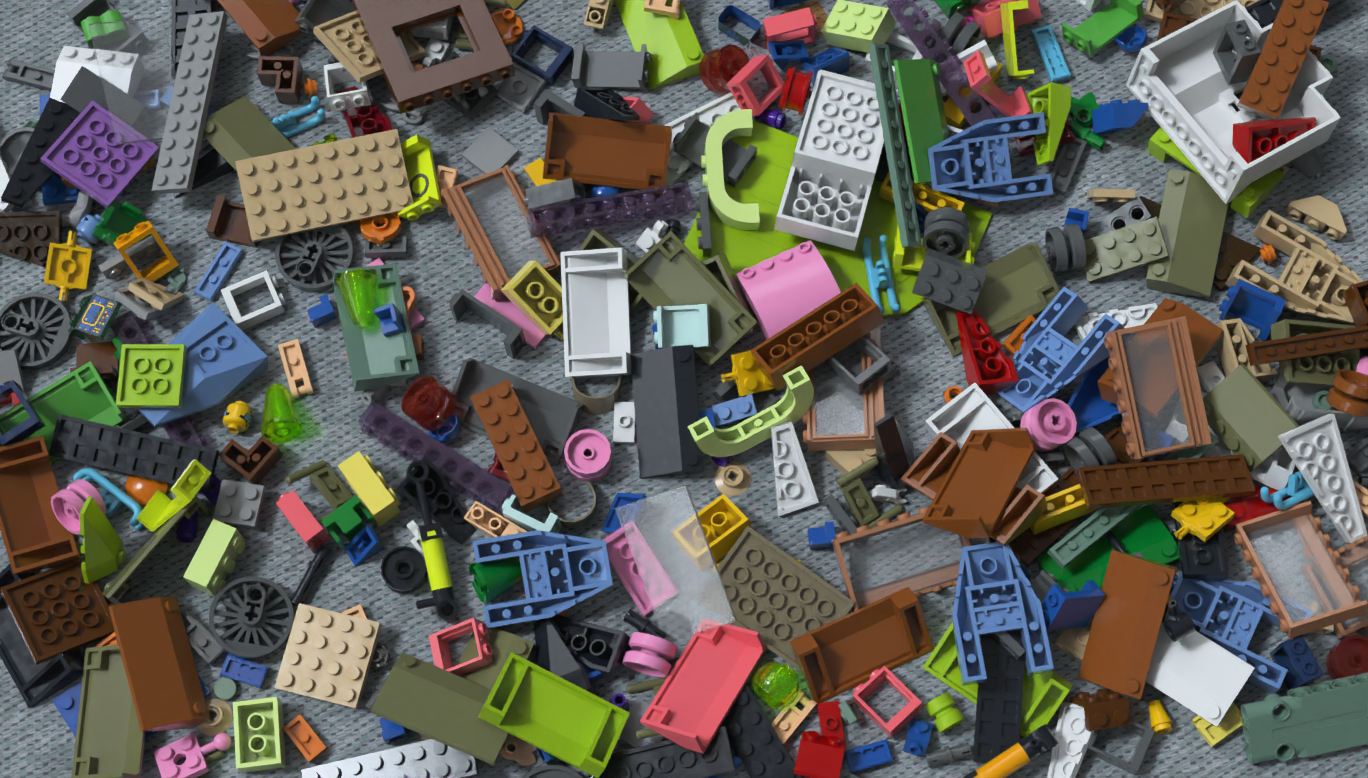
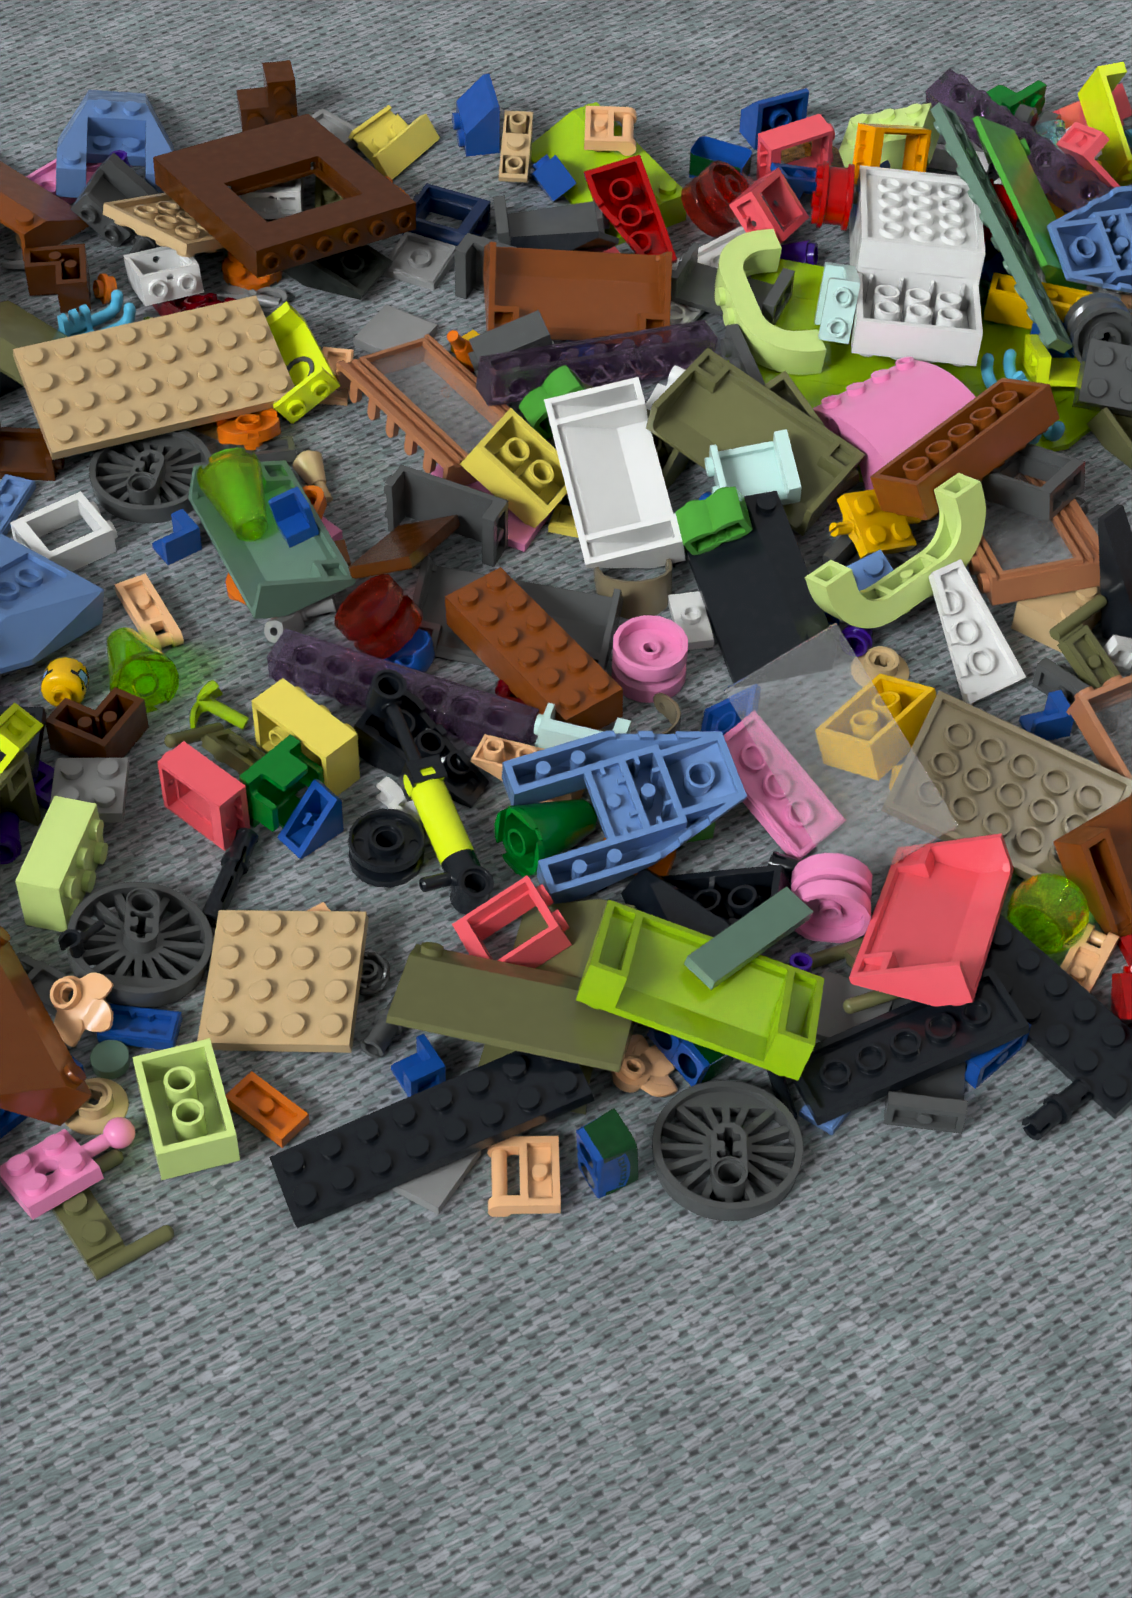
camera: 15 degrees left, 20 degrees down
(211, 658) = (85, 1009): none -> light nougat plate
(215, 619) = (77, 940): none -> black hand
(318, 445) = (207, 701): none -> lime plant
(414, 266) = (311, 469): none -> tan cone
(455, 349) = (404, 547): none -> reddish brown tile
(527, 182) = (461, 349): none -> orange cone
(575, 238) = (558, 383): none -> bright green brick
(588, 685) = (748, 938): none -> sand green tile
(620, 26) = (552, 177): none -> blue slope
(647, 362) = (713, 520): none -> bright green brick
(662, 71) = (630, 205): none -> red wedge
(774, 186) = (837, 302): none -> light aqua panel
(830, 50) = (870, 144): none -> light orange window
(964, 48) = (1051, 130): none -> clear light blue tile

